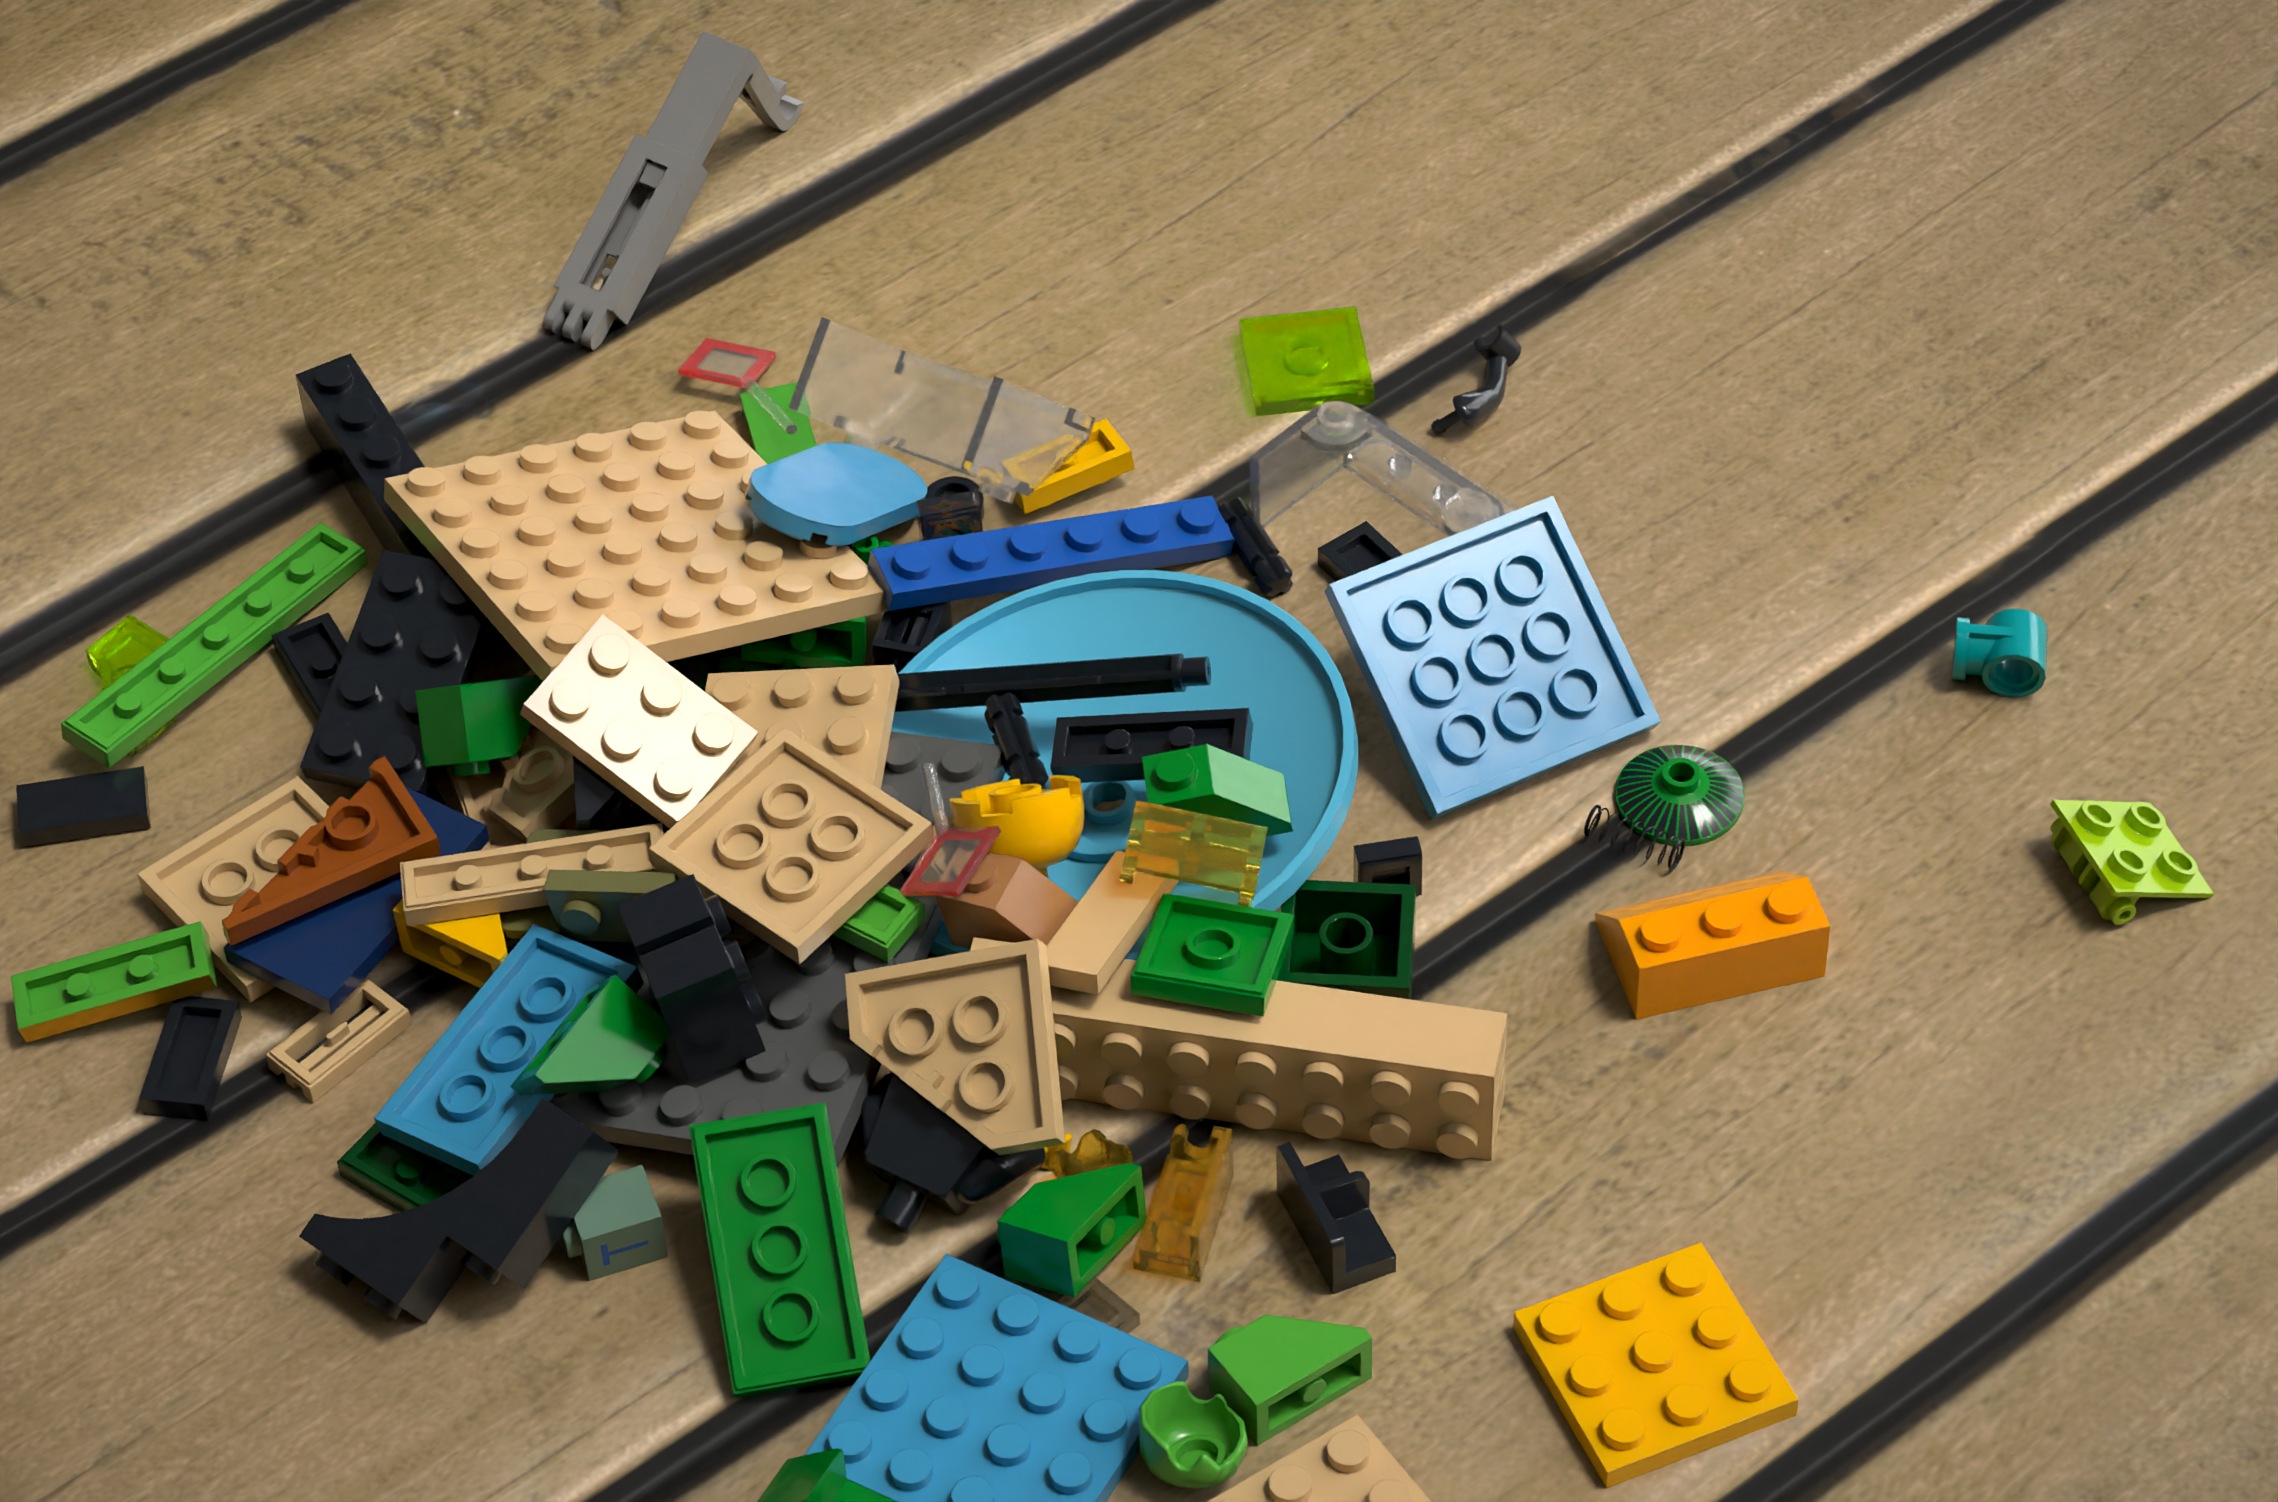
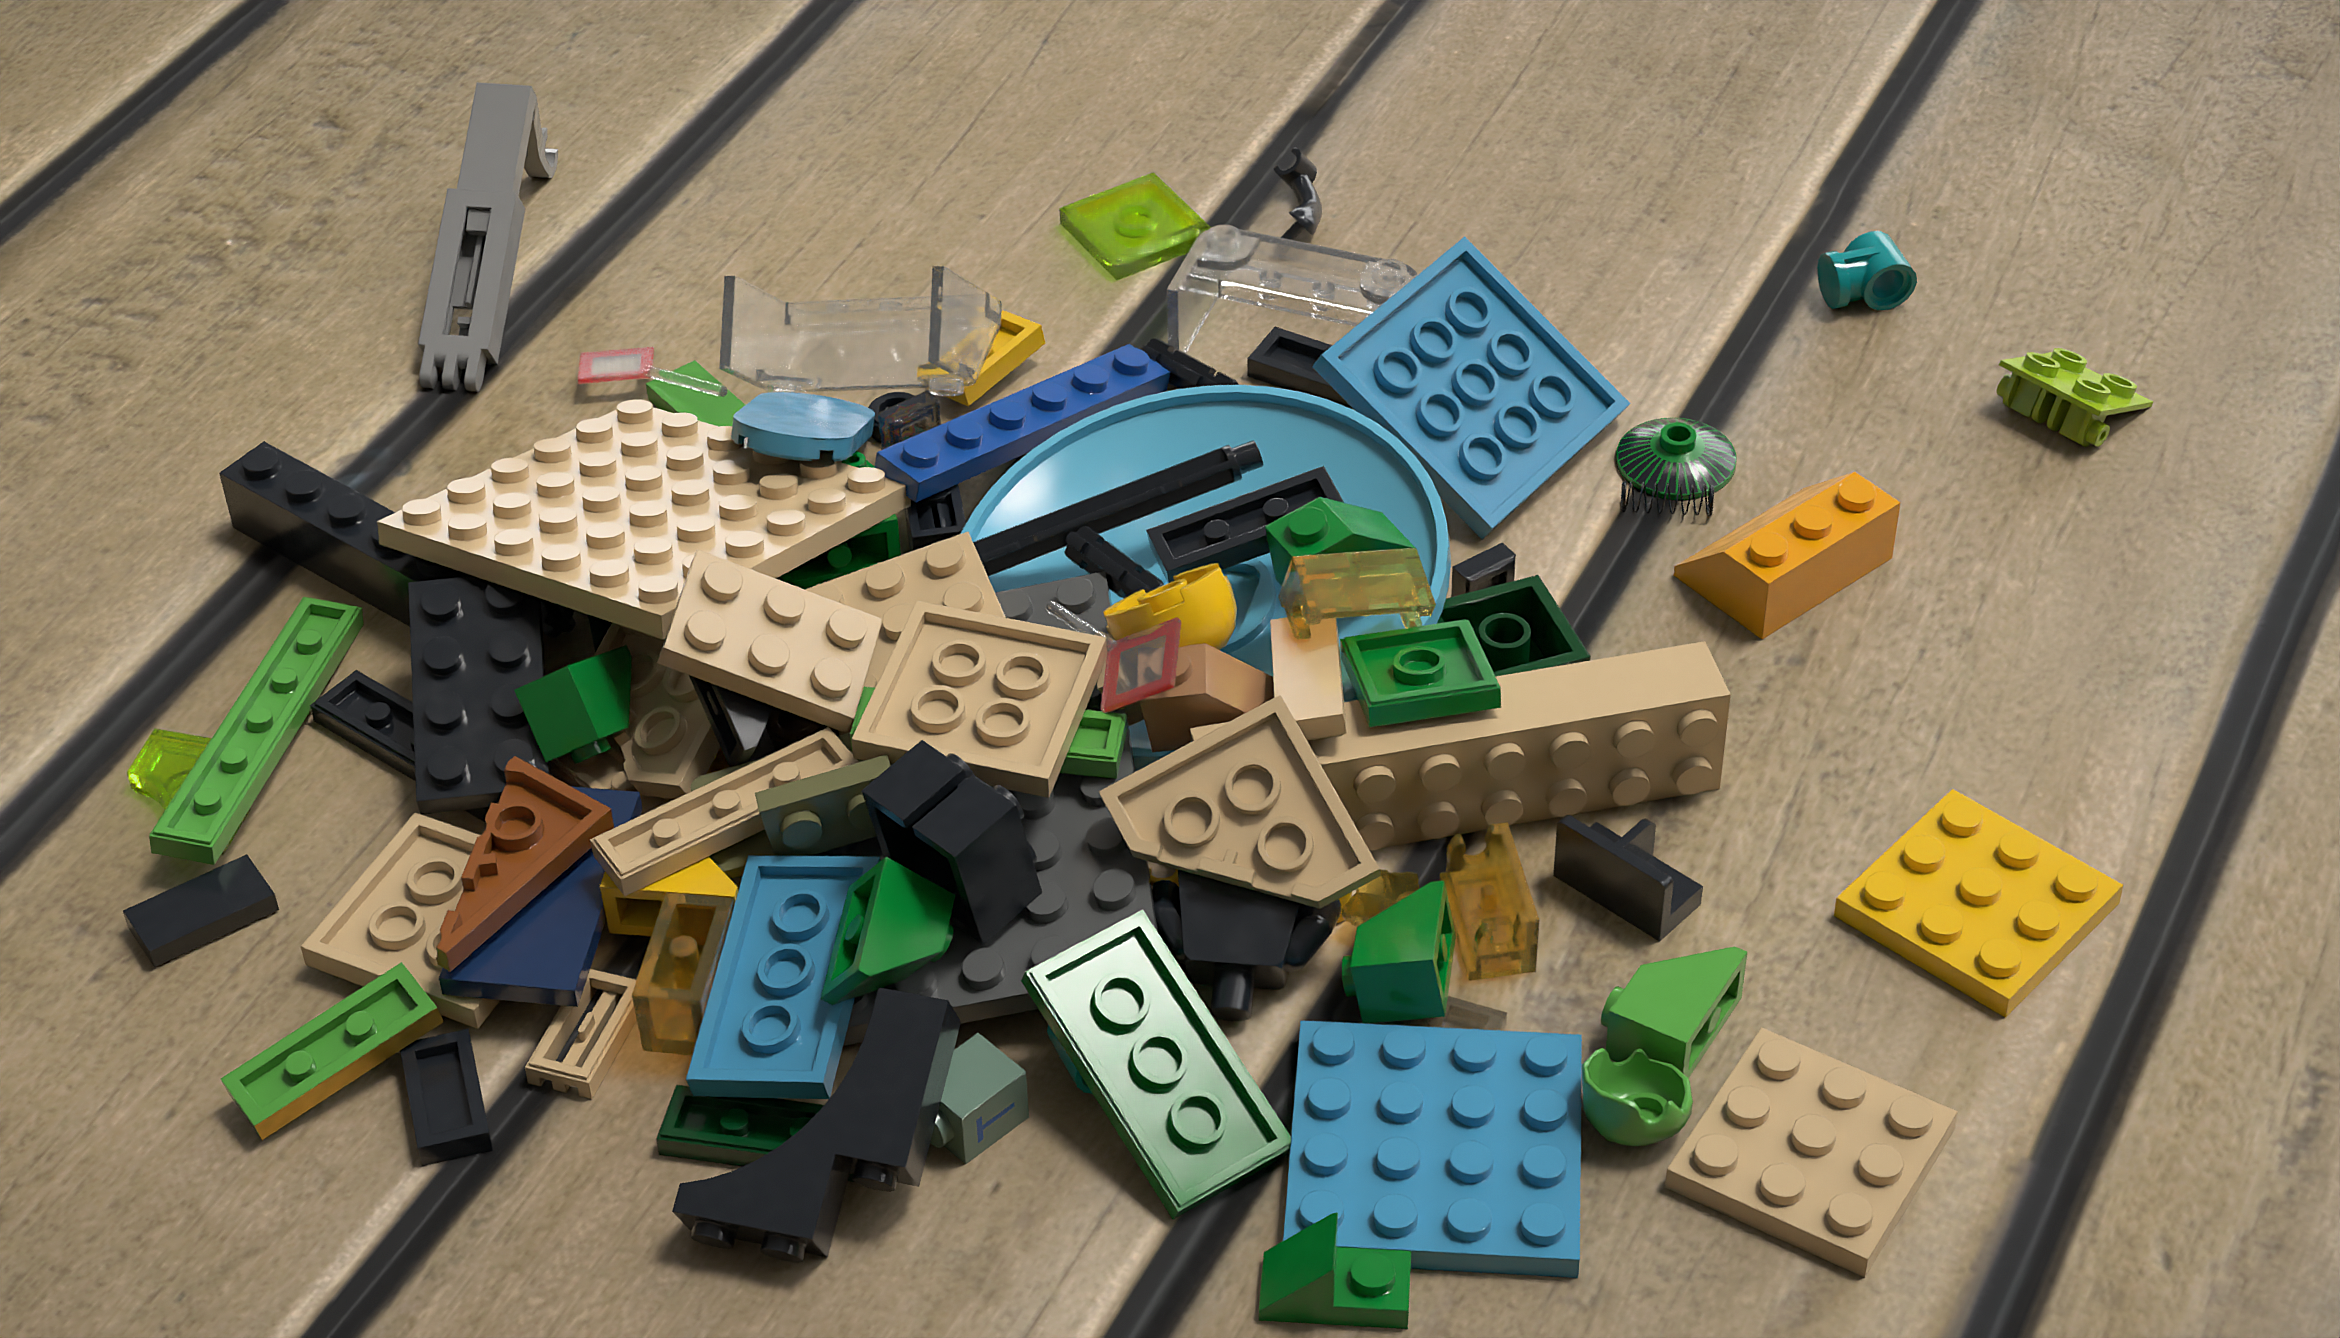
camera: 25 degrees left, 5 degrees down
(424, 1007) = (680, 971): none -> clear yellow brick

